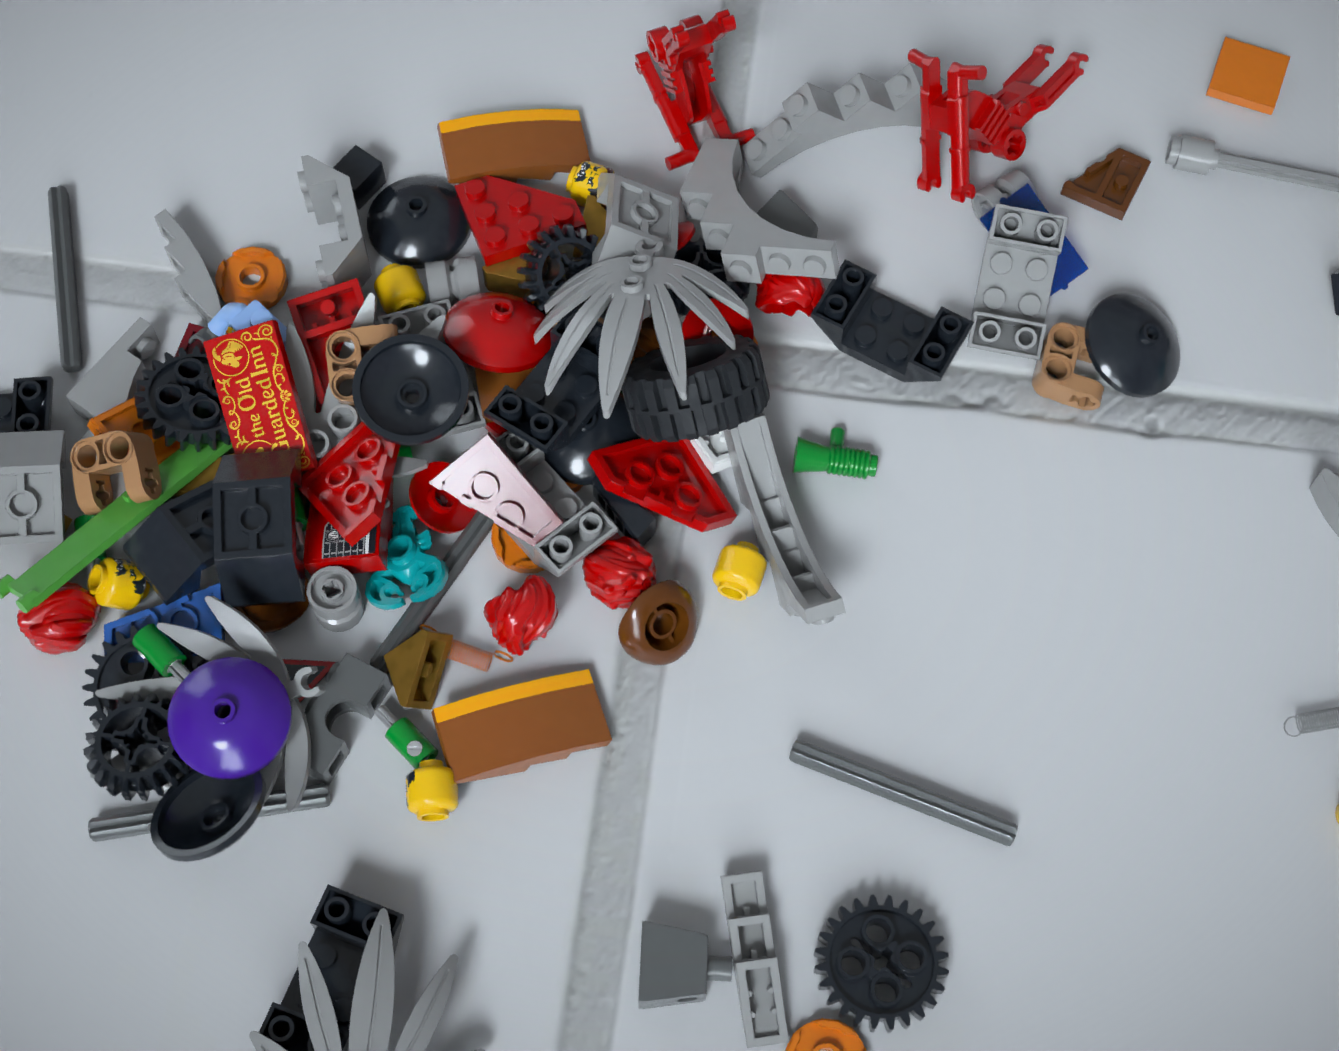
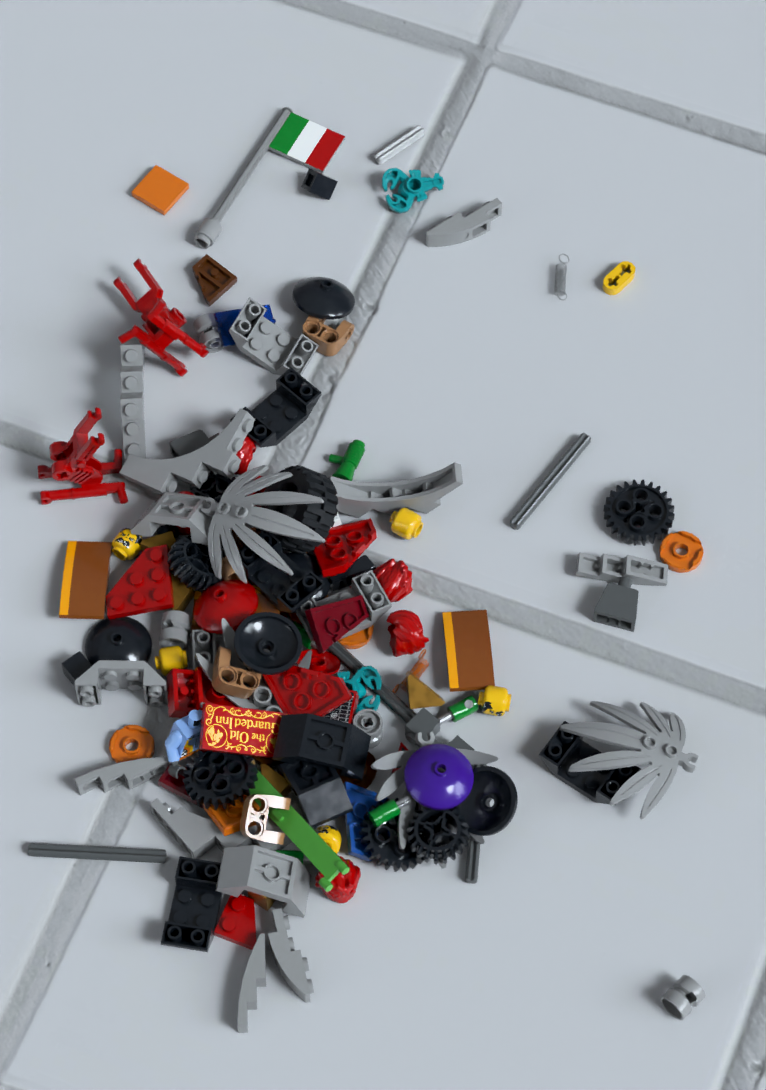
camera: 75 degrees left, 5 degrees down
(659, 624) = (428, 569): reddish brown hat -> none

